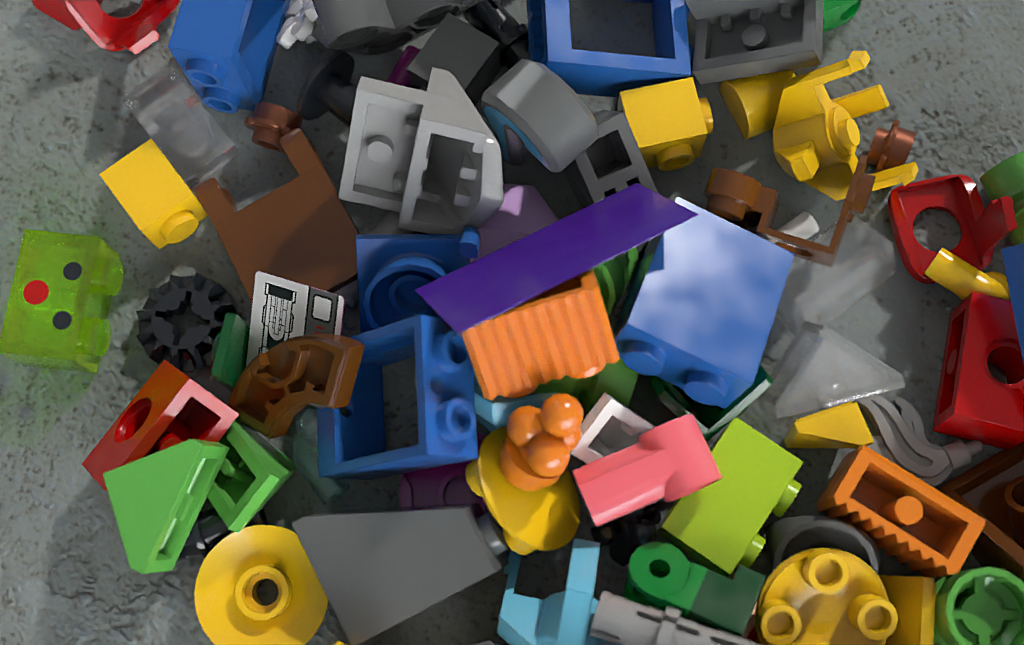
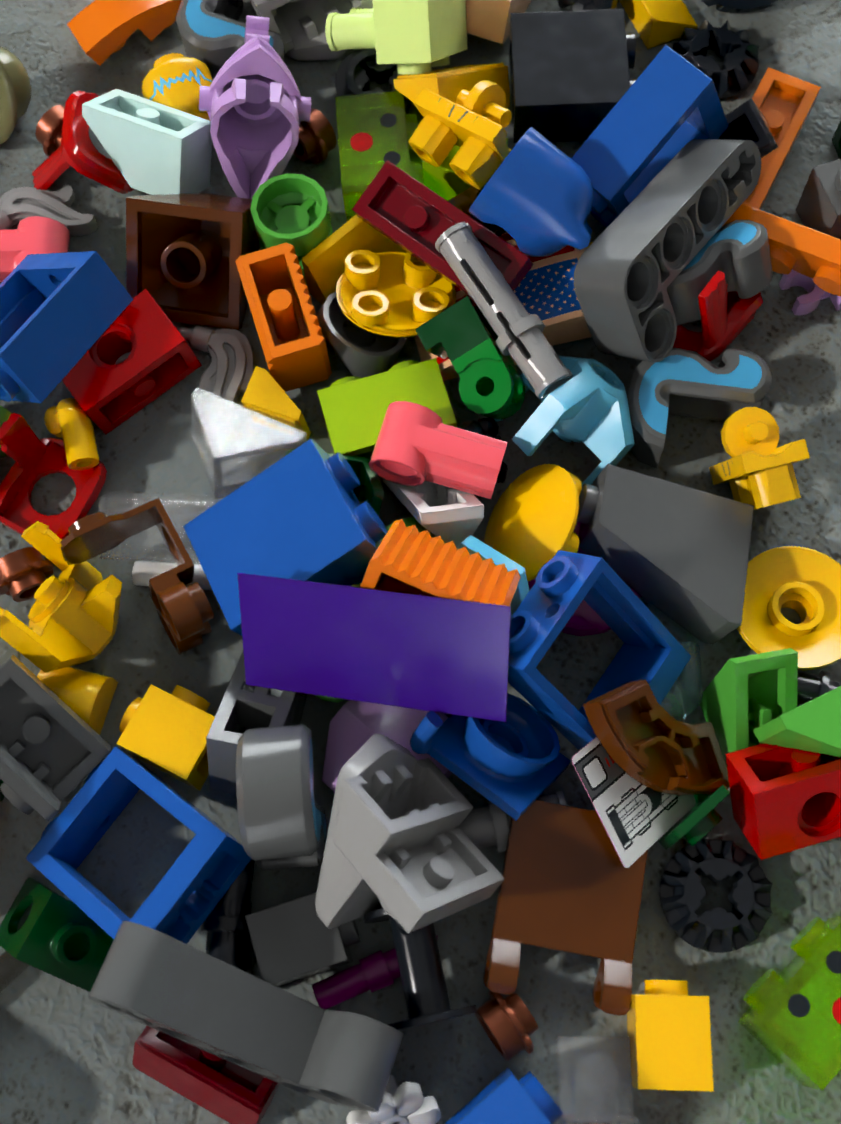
camera: 140 degrees left, 5 degrees down
(540, 442) = (503, 519): orange piece -> none

